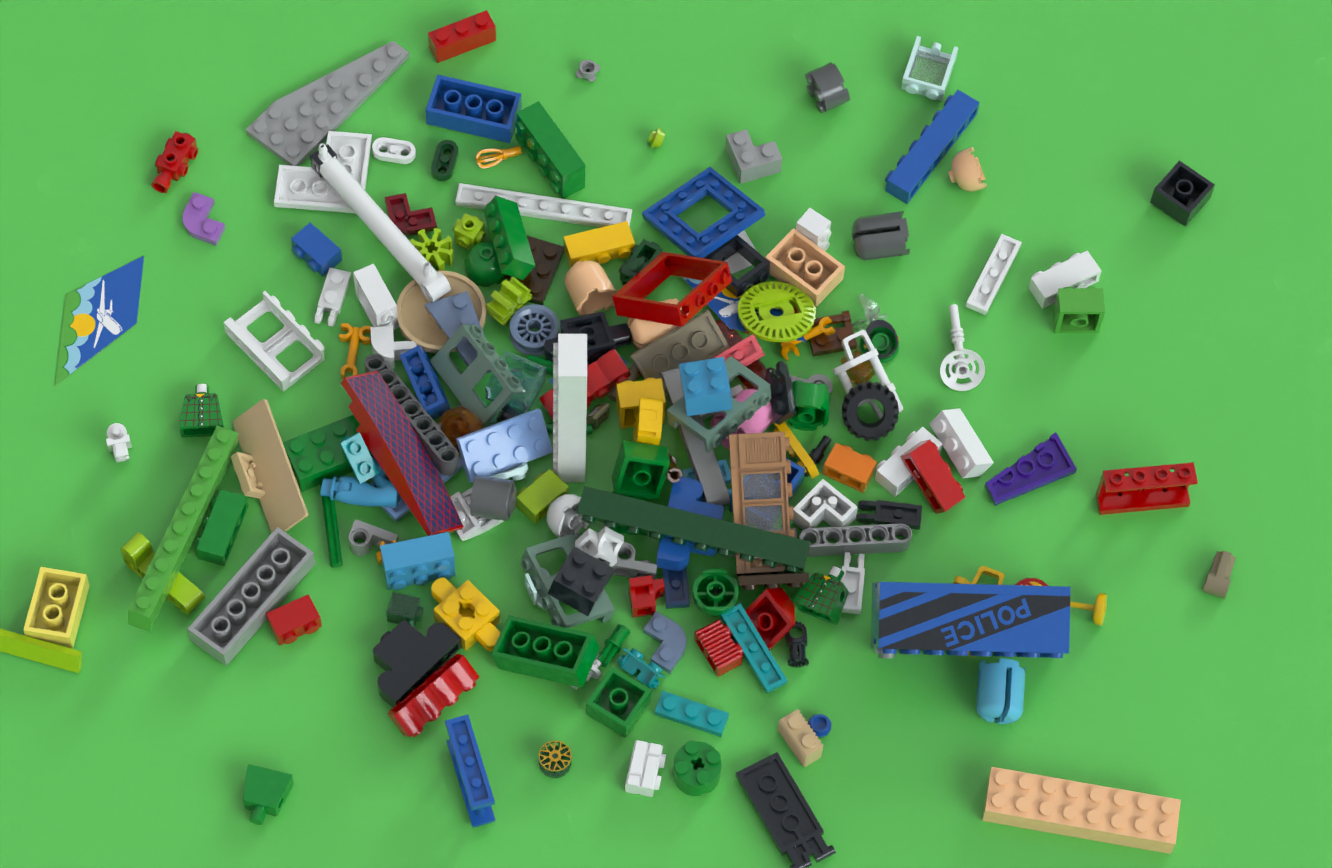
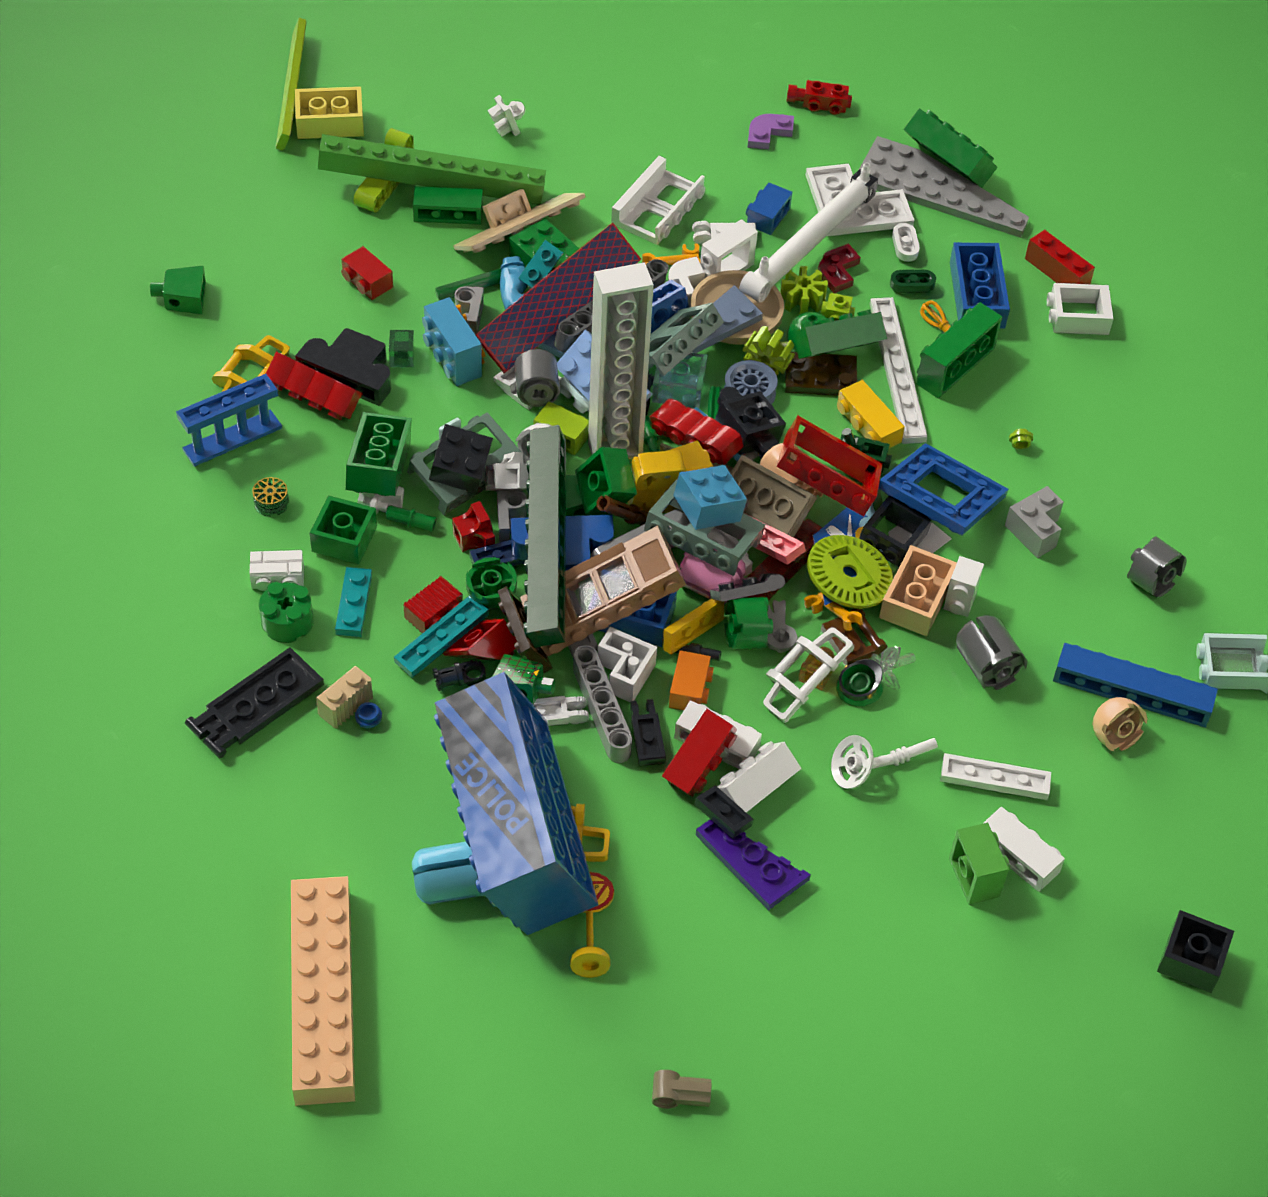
camera: 75 degrees right, 10 degrees down
(98, 316) = (641, 86): sticker -> none
(200, 413) = (562, 167): green torso -> none
(251, 594) = (386, 234): light grey brick -> none
(297, 72) = (951, 147): none -> green brick
(402, 766) = (228, 379): none -> yellow bar
(466, 613) = (411, 391): yellow brick -> none
(523, 22) = (1080, 322): none -> white window
(588, 65) = (1075, 370): light grey plate -> none
(589, 287) = (816, 404): light nougat cylinder -> none
(634, 661) = (397, 544): teal hinge -> none
(671, 638) = (424, 570): sand blue plate -> none
(870, 430) = (749, 666): black tyre -> none
(990, 475) = (724, 812): none -> black plate
(1145, 488) = (760, 976): red window -> none

